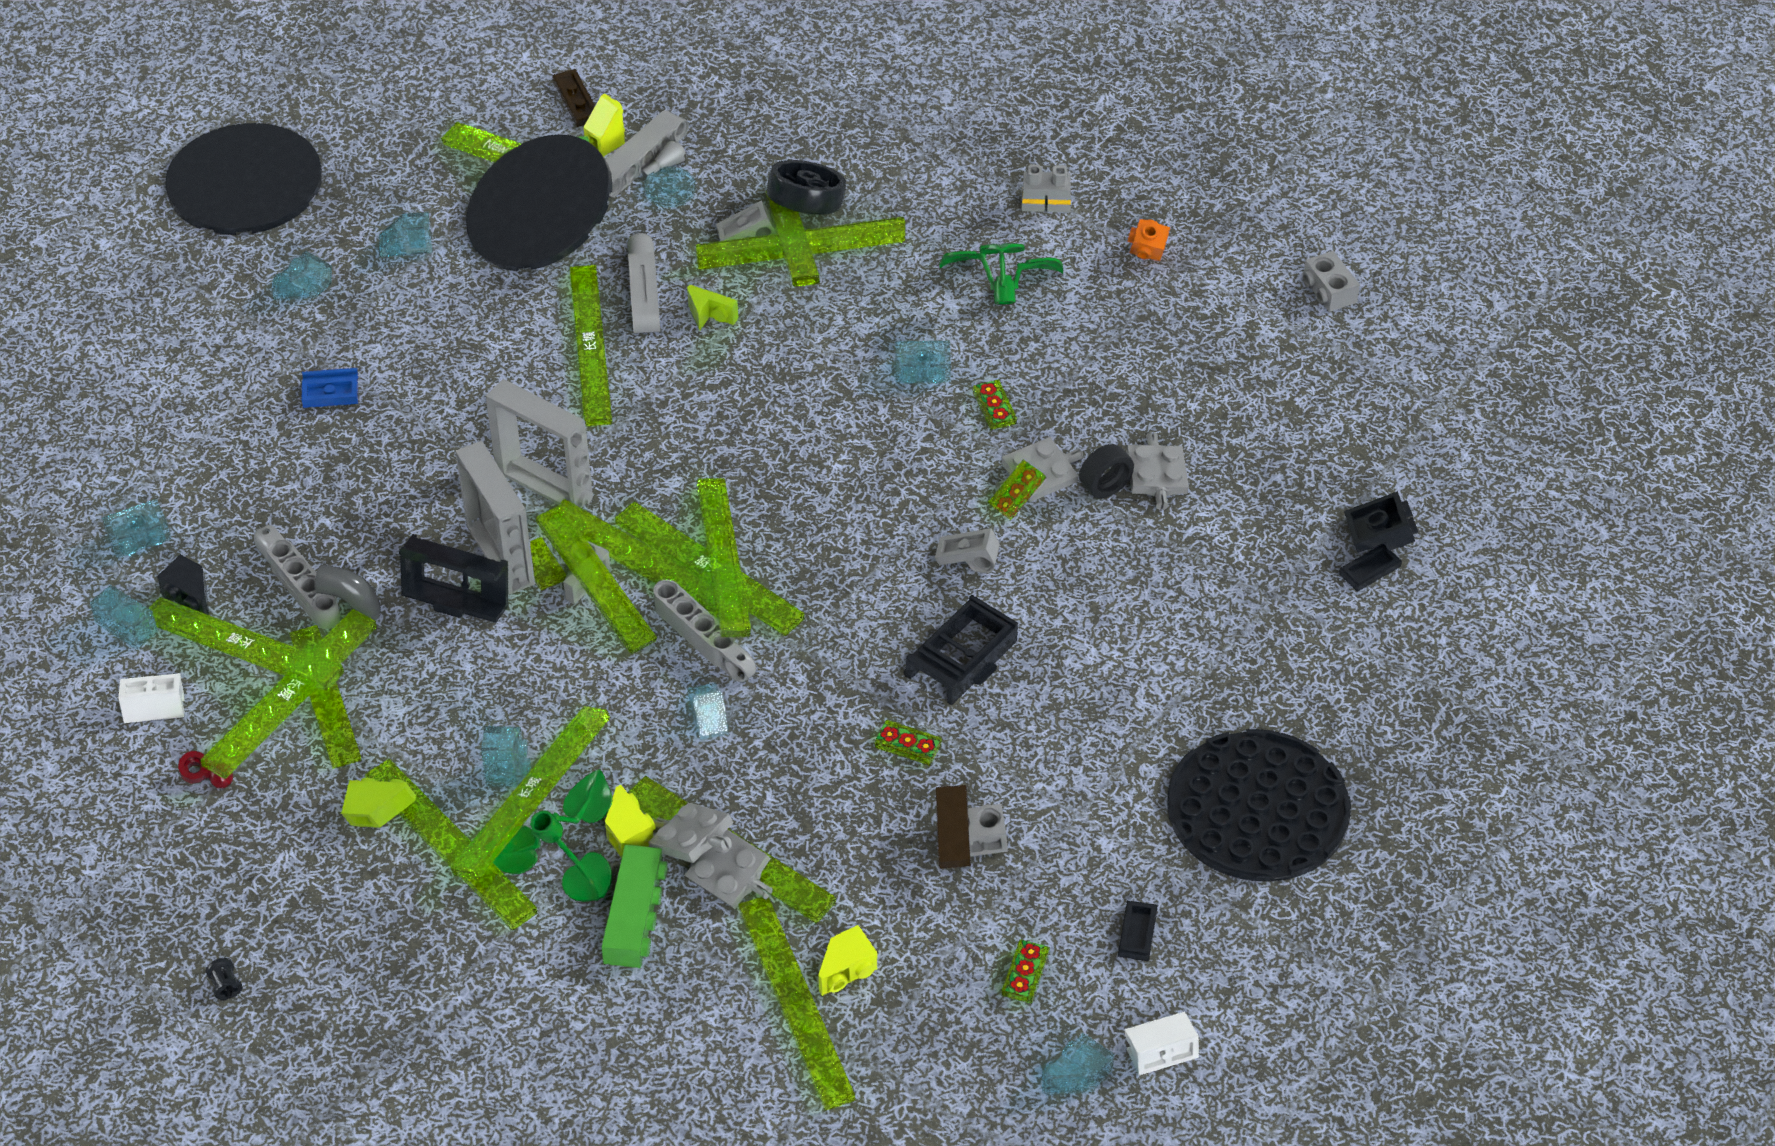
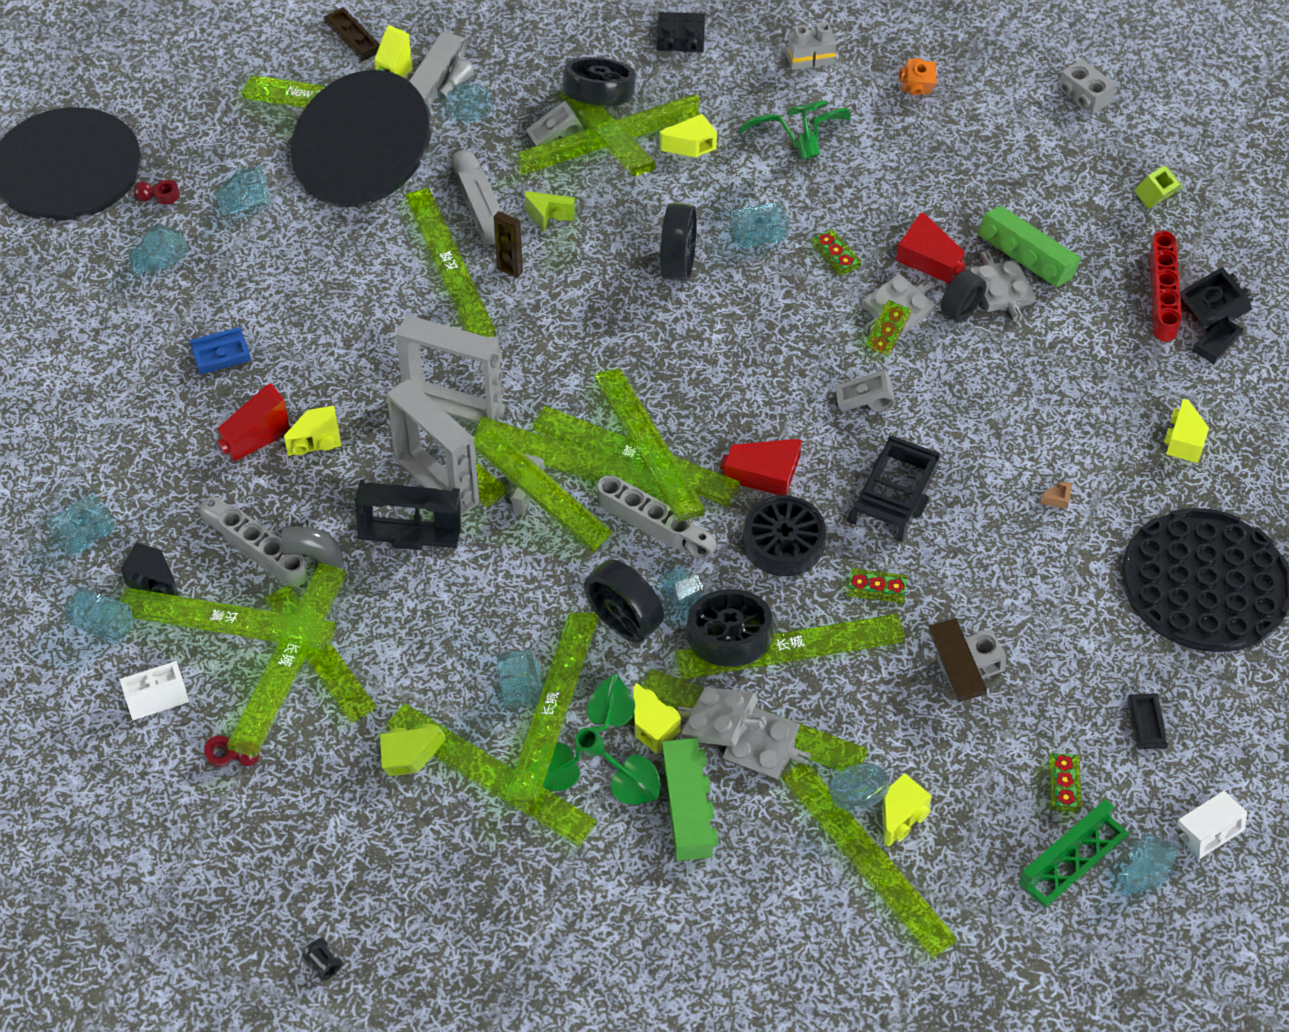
camera: 15 degrees left, 5 degrees up
(329, 223) = (164, 191): none -> dark red plate
(335, 464) = (254, 424): none -> red slope
(393, 483) = (313, 432): none -> neon yellow slope
(634, 701) = (624, 600): none -> black piece
(648, 333) = (508, 244): none -> dark brown tile
(736, 750) = (729, 636): none -> black piece
(795, 783) = (806, 644): none -> clear neon green tile
(807, 928) = (859, 786): none -> clear light blue tile
(824, 362) = (678, 241): none -> black piece
(828, 674) = (784, 535): none -> black piece
(835, 600) = (763, 465): none -> red slope
(882, 261) = (689, 137): none -> neon yellow slope
(916, 152) = (680, 31): none -> black plate
(1003, 1030) = (1065, 846): none -> green fence
(1091, 417) = (930, 250): none -> red slope
(1133, 691) = (1058, 495): none -> medium nougat tile
(1199, 433) = (1029, 246): none -> bright green brick
(1294, 655) = (1188, 435): none -> neon yellow slope
(1331, 501) = (1165, 286): none -> red beam
(1367, 397) = (1158, 187): none -> lime slope

